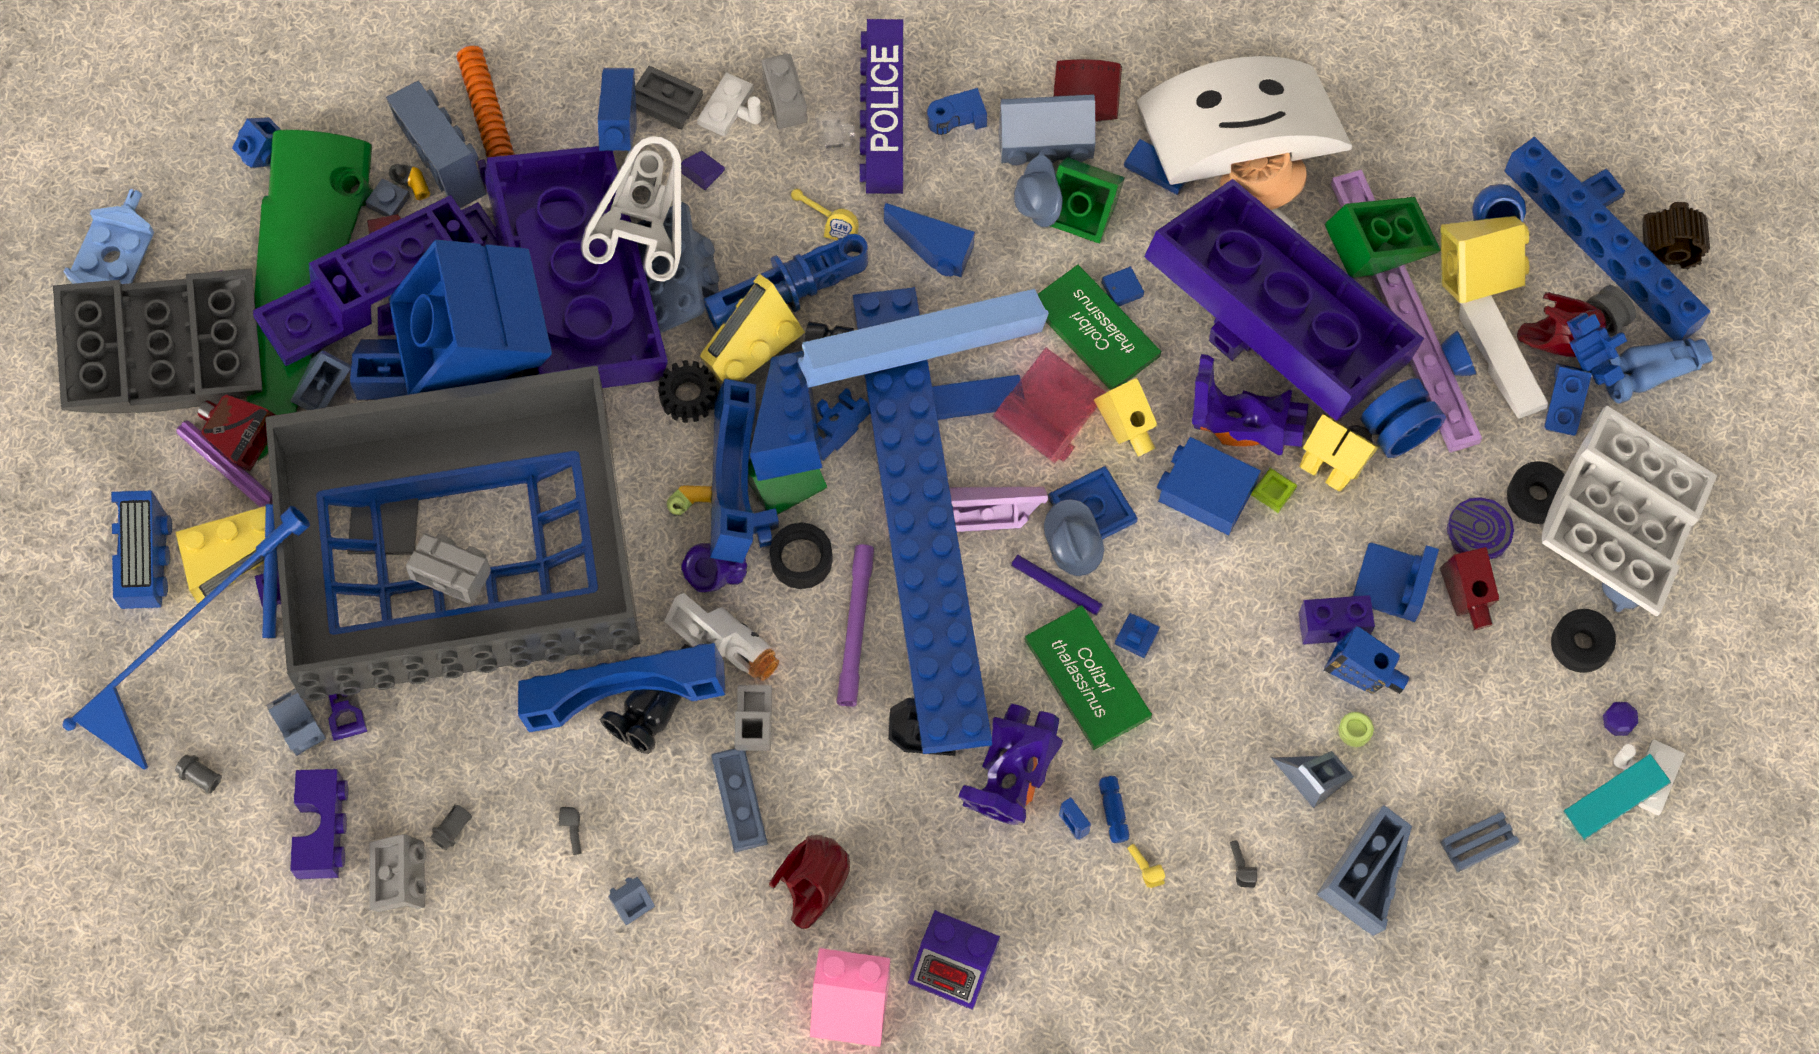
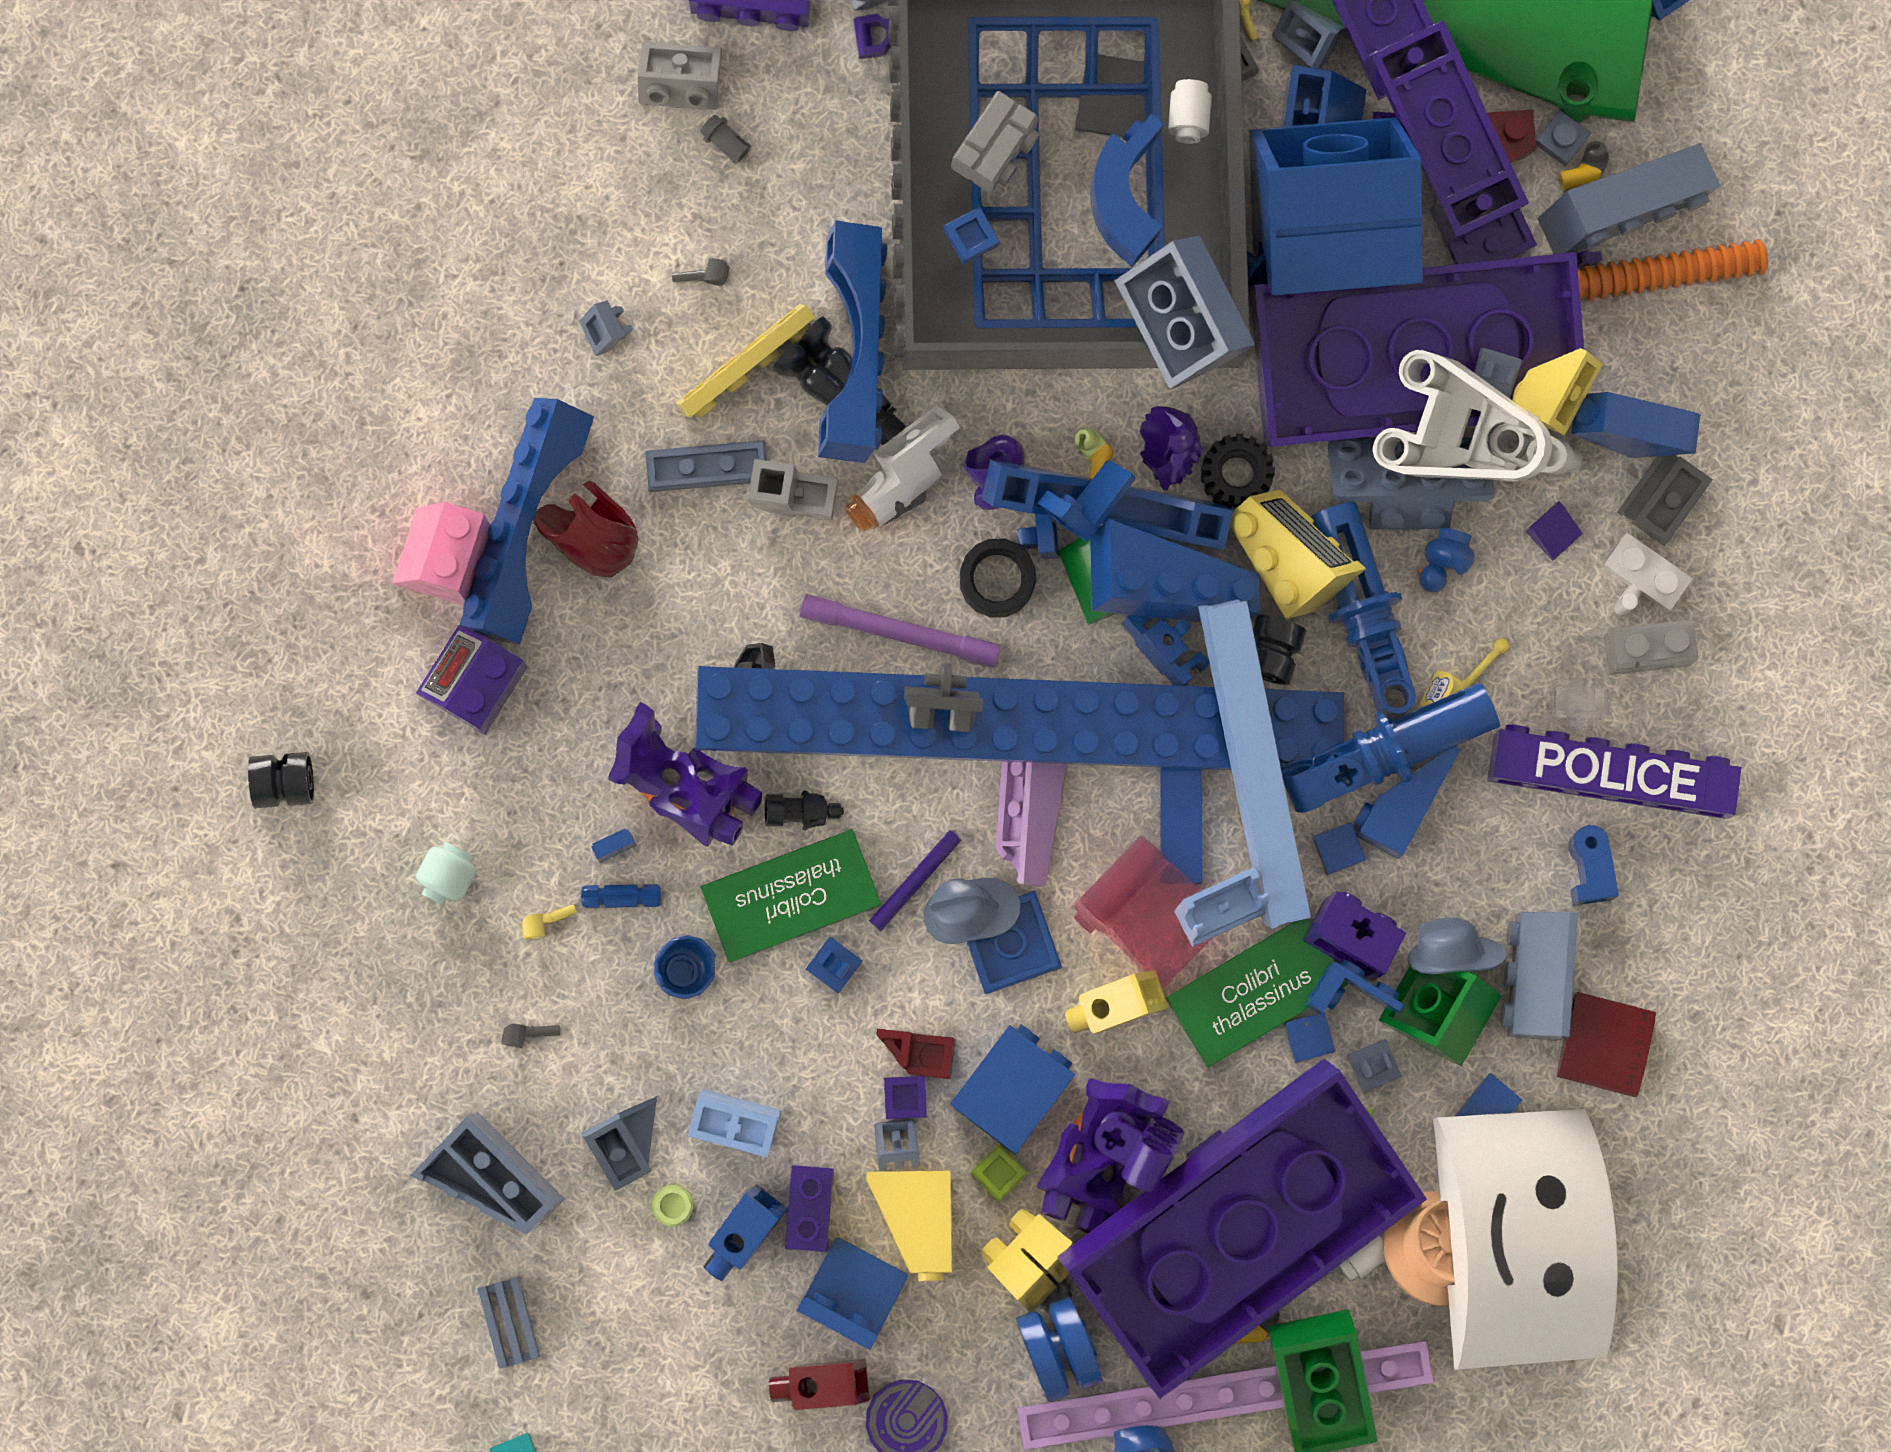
camera: 95 degrees right, 15 degrees up
(406, 427) = (1189, 111): none -> white brick
(480, 475) = (1117, 215): none -> blue arch
(531, 576) = (971, 235): none -> blue plate
(576, 409) = (1184, 311): none -> sand blue slope
(586, 203) = (1498, 370): none -> sand blue tile
(598, 157) = (1558, 388): none -> light yellow slope
(645, 778) = (733, 372): none -> light yellow plate
(674, 439) = (1170, 444): none -> dark purple hair
(731, 235) = (1447, 551): none -> blue animal
(735, 473) = (1093, 505): none -> blue bracket
(744, 925) = (500, 594): none -> blue arch
(892, 246) = (1390, 748): none -> blue piece
(913, 556) = (960, 703): none -> dark grey hips
(974, 284) = (1339, 848): none -> blue tile
(1015, 671) = (809, 810): none -> black piece
(1039, 349) = (1221, 907): none -> light blue hinge
(1041, 259) = (1335, 936): none -> dark purple brick
(1080, 269) = (1329, 992): none -> blue bracket
(1125, 951) = (446, 873): none -> light aqua head
(1133, 240) = (1374, 1065): none -> sand blue tile
(1174, 743) = (674, 971): none -> blue hair
(1193, 559) = (920, 1053): none -> dark red slope
(1231, 566) = (905, 1097): none -> dark purple tile
(1240, 367) = (1142, 1147): none -> dark purple piece
(1275, 563) = (897, 1155): none -> sand blue tile
(1281, 687) = (734, 1123): none -> light blue hinge
(1326, 532) = (918, 1216): none -> light yellow slope

